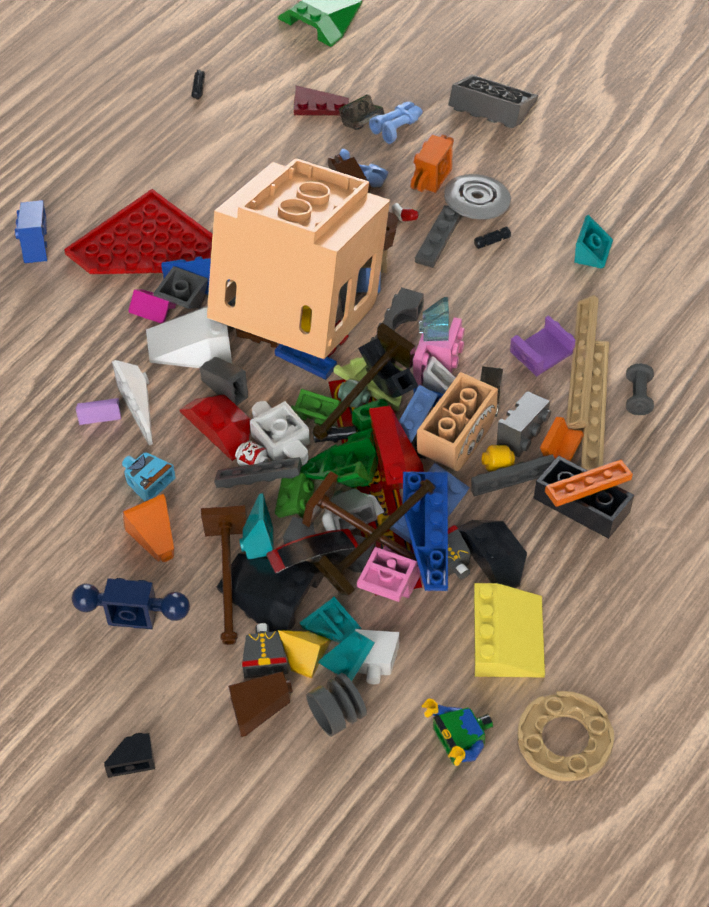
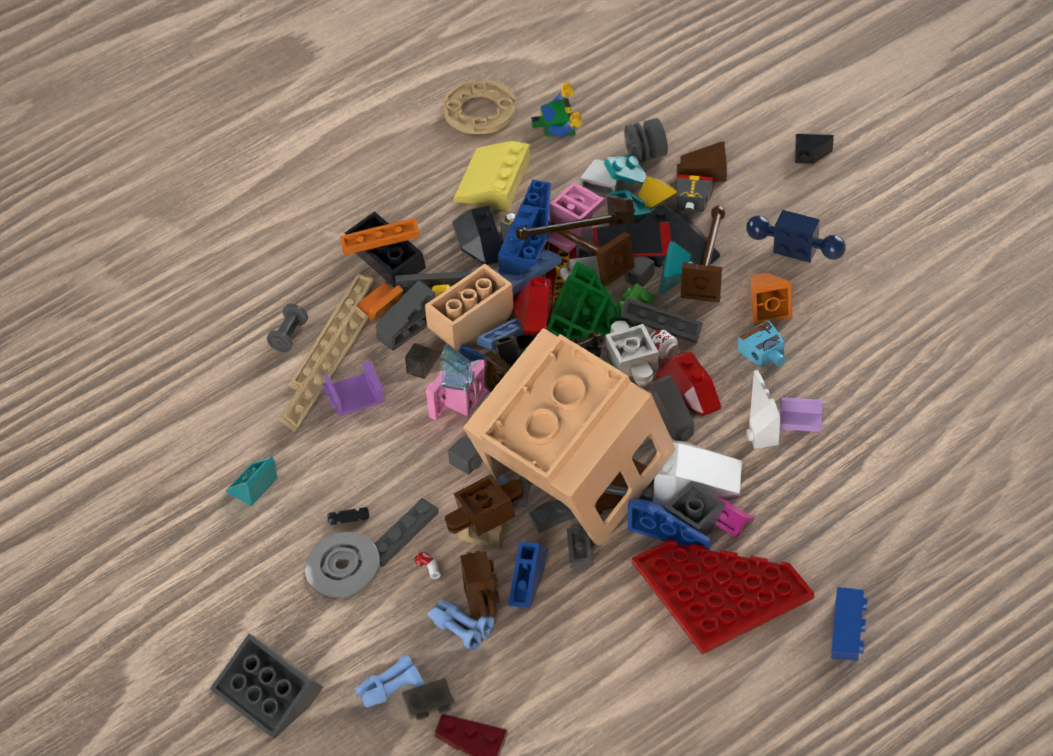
camera: 165 degrees left, 5 degrees down
(432, 163) = (375, 597): orange brick -> none

